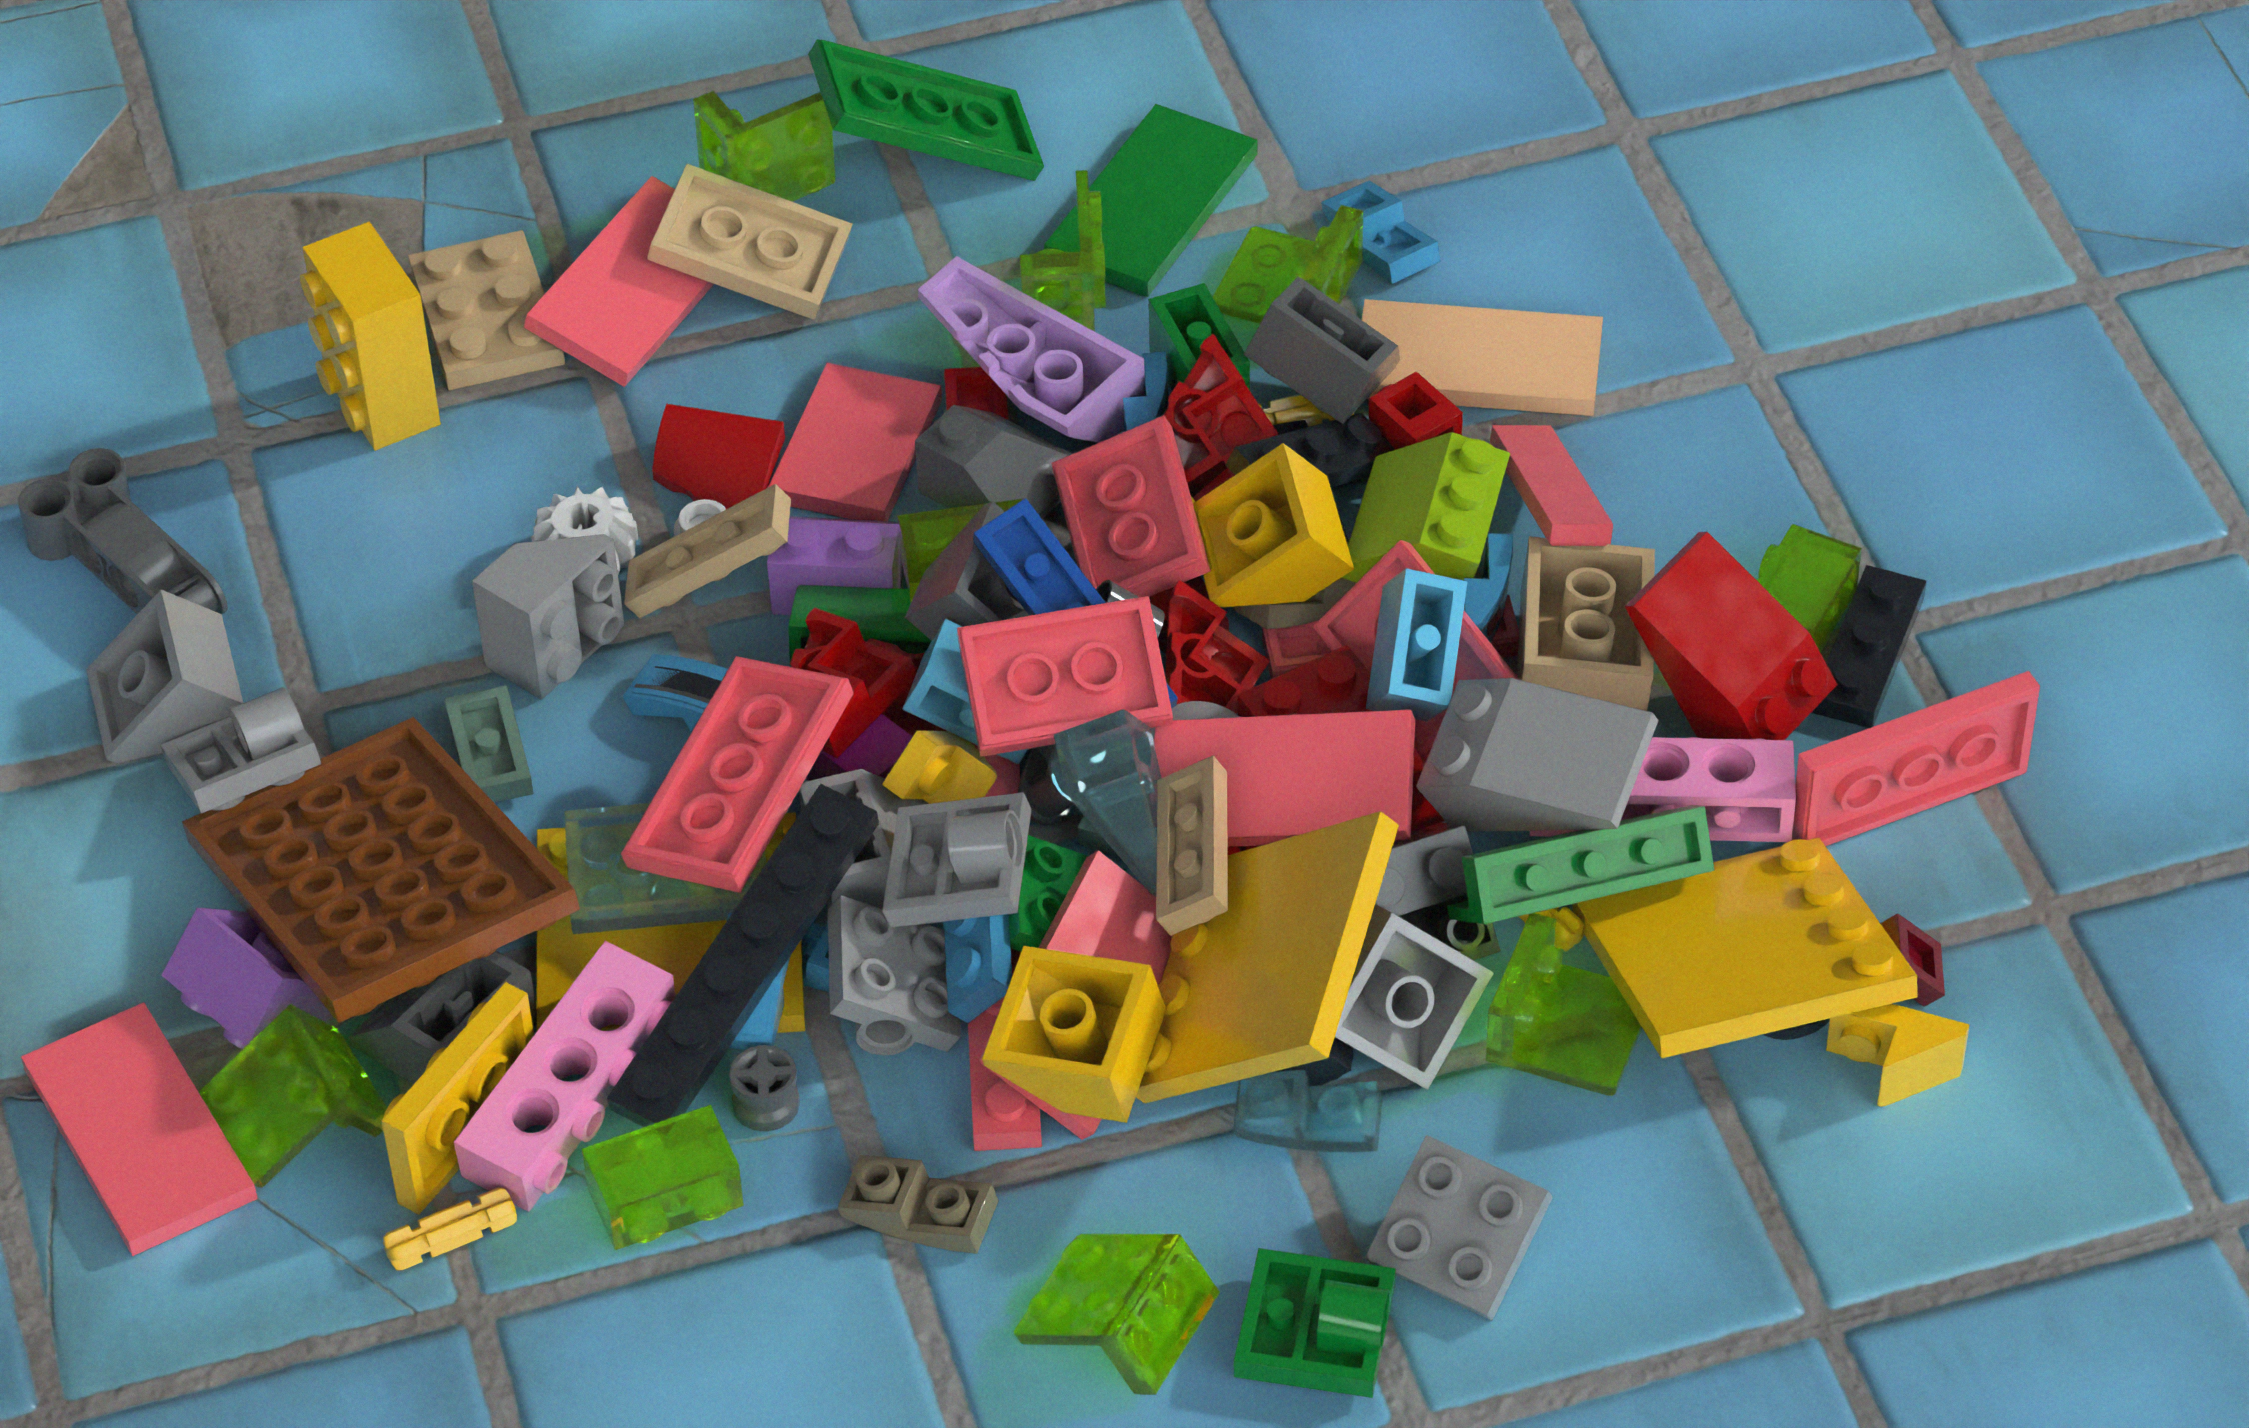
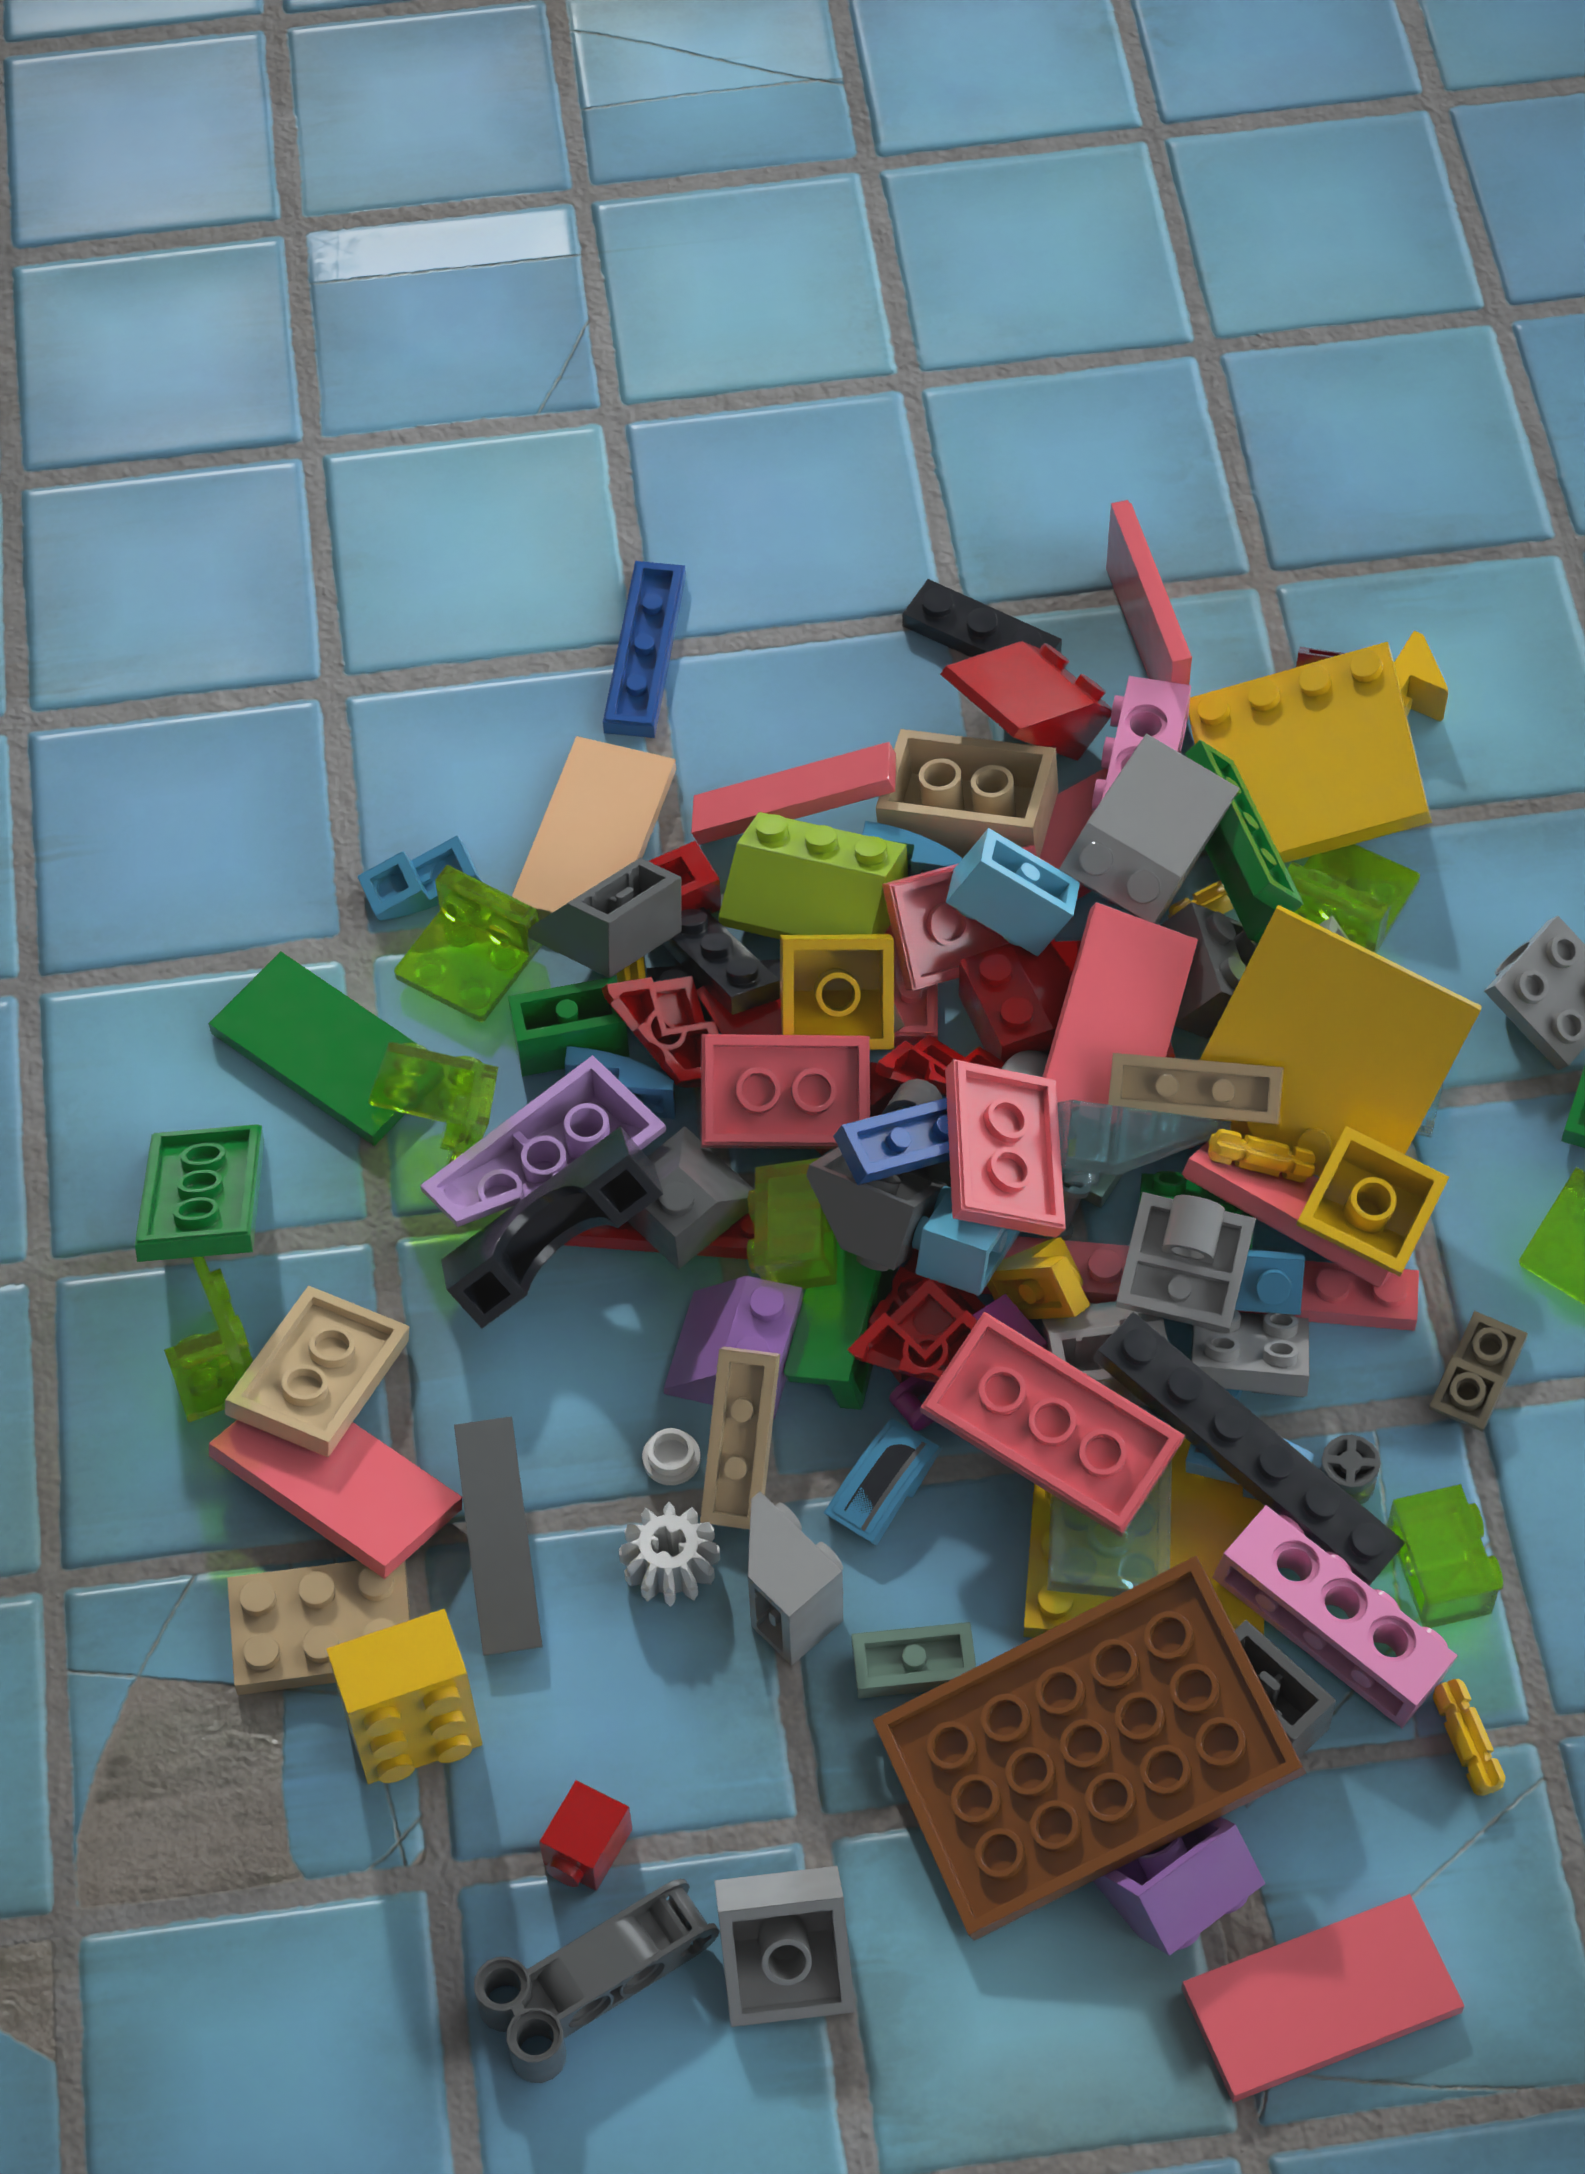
camera: 80 degrees left, 10 degrees up
(242, 753) = (901, 1870): light grey plate -> none
(268, 521) = (585, 1837): none -> red brick
(288, 1091) = (1317, 1856): clear neon green bracket -> none
(440, 1104) = (1369, 1699): yellow plate -> none
(604, 399) = (497, 1536): none -> dark grey slope
(715, 453) = (590, 1433): red slope -> none
(856, 442) = (590, 1326): coral tile -> none
(934, 359) = (594, 1190): none -> black arch
(1128, 915) = (1261, 1155): none -> yellow axle
(1752, 361) = (644, 649): none -> blue tile
(1812, 578) = (916, 652): clear neon green brick -> none

